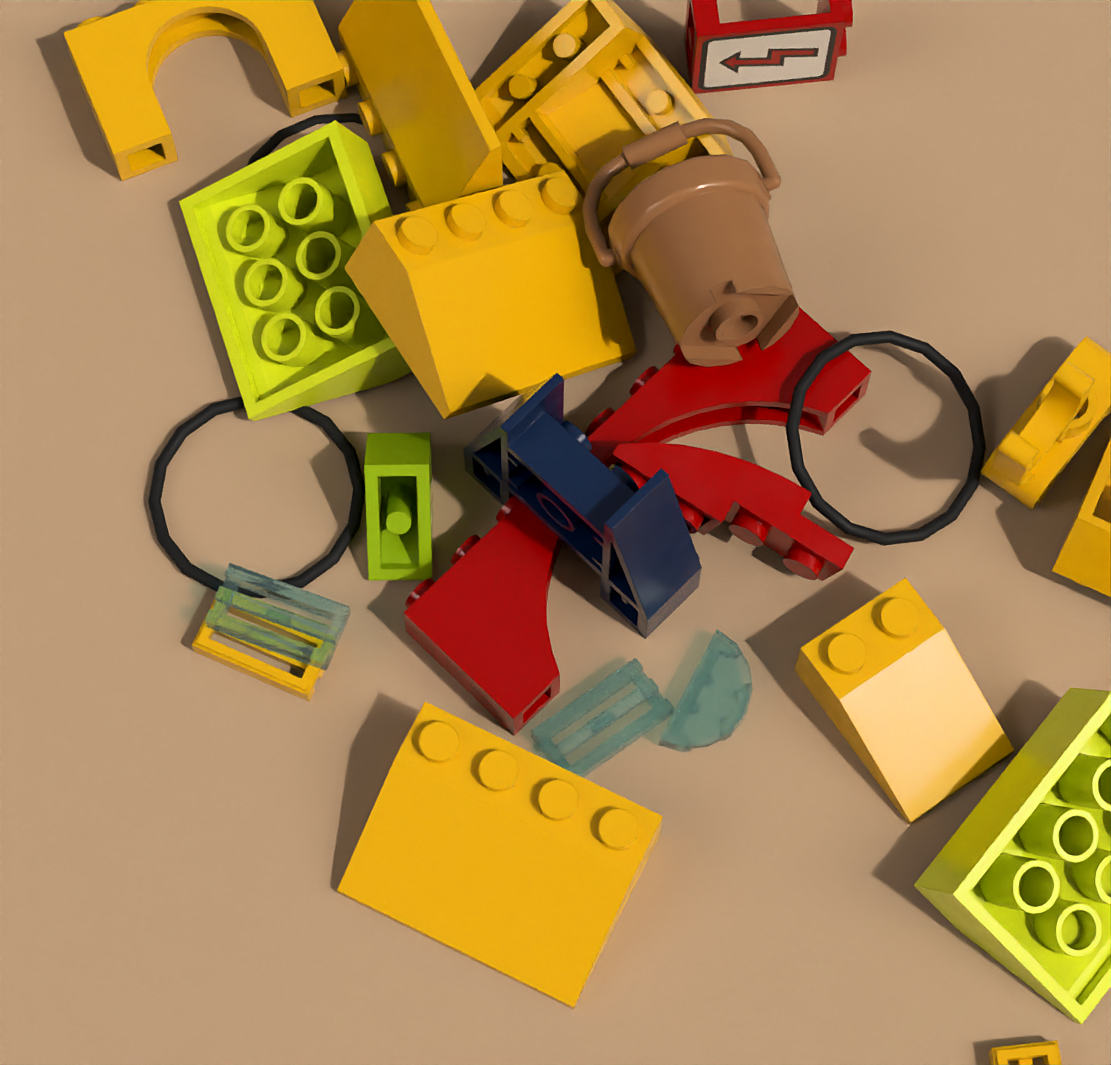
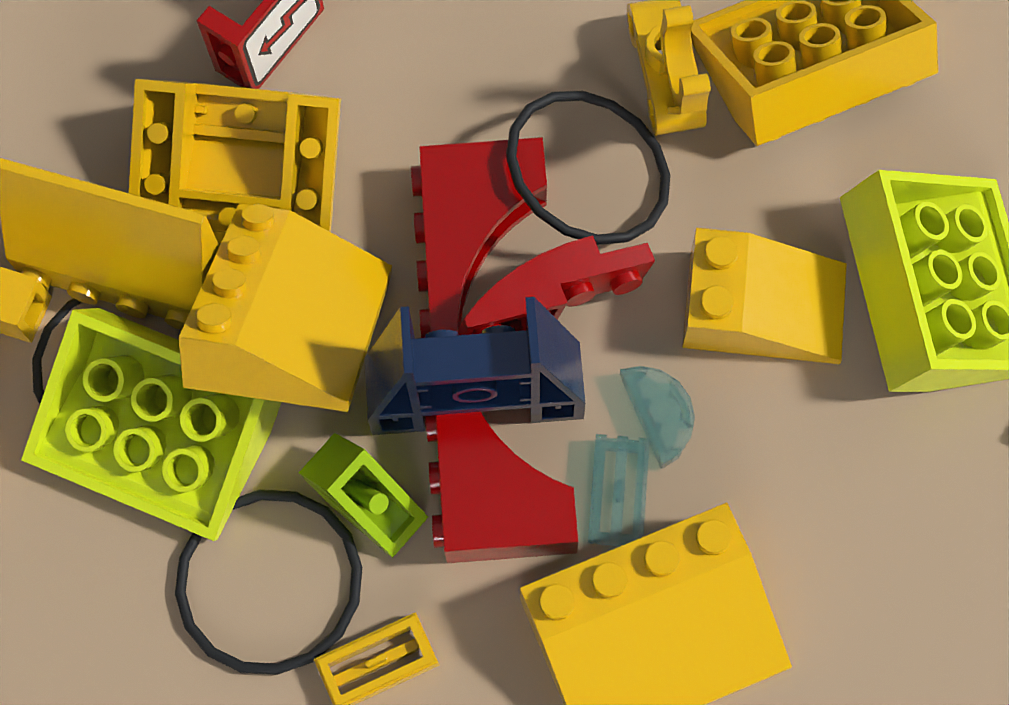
camera: 45 degrees left, 0 degrees up
(229, 597) = (360, 616): clear light blue tile -> none
(700, 241) = (374, 158): medium nougat piece -> none

